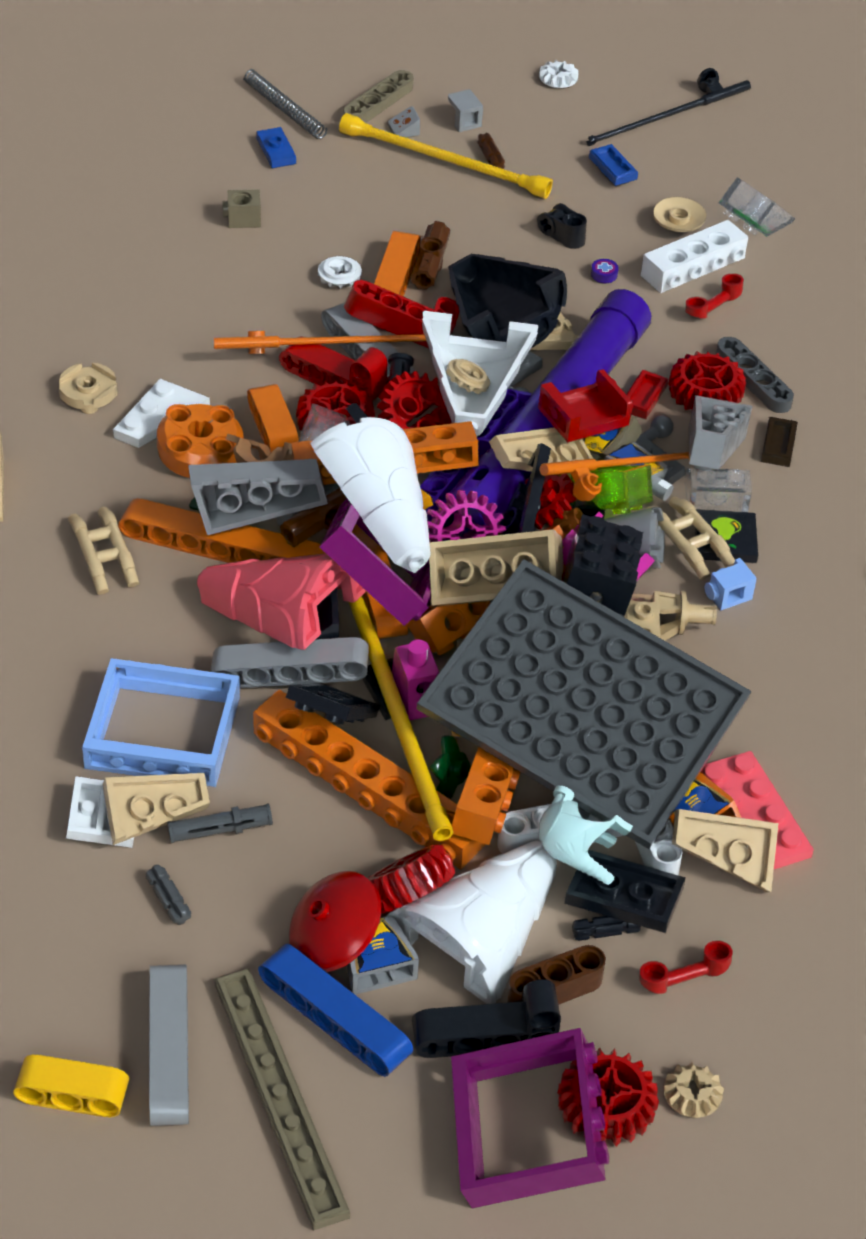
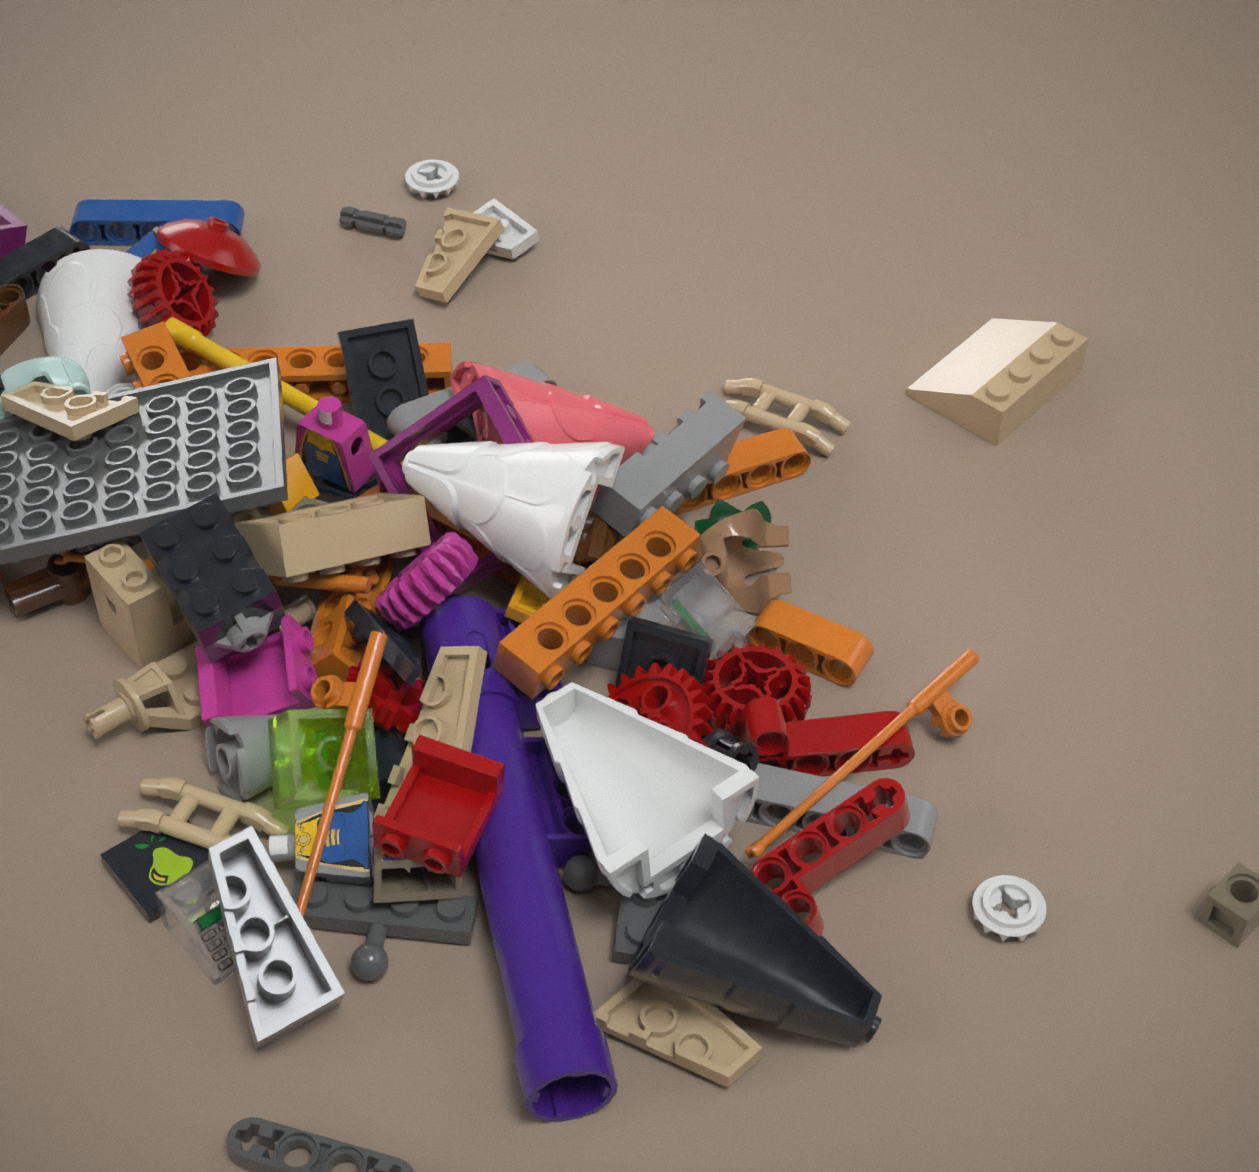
camera: 140 degrees right, 0 degrees up
(71, 1086) = (299, 93): yellow beam -> none
(83, 897) = (421, 174): none -> white gear
(87, 398) = (1040, 567): tan plate -> none
(143, 419) = (933, 581): white wing -> none
(150, 760) = (517, 275): light blue window -> none
(168, 1046) = (261, 145): light grey beam -> none
(196, 436) = (841, 562): orange piece -> none
(219, 823) = (380, 288): dark grey pin -> none
(282, 1100) = (148, 169): dark tan tile -> none
(398, 262) = (936, 943): orange beam -> none
(430, 255) = (948, 1035): reddish brown piece -> none
(468, 375) = (616, 775): tan gear -> none
(588, 765) = (65, 413): none -> tan wing
(646, 392) = (443, 1013): red tile -> none
(706, 377) = (380, 1097): red gear -> none
(731, 585) = (102, 786): light blue brick -> none
(779, 441) = (201, 1069): dark brown tile -> none

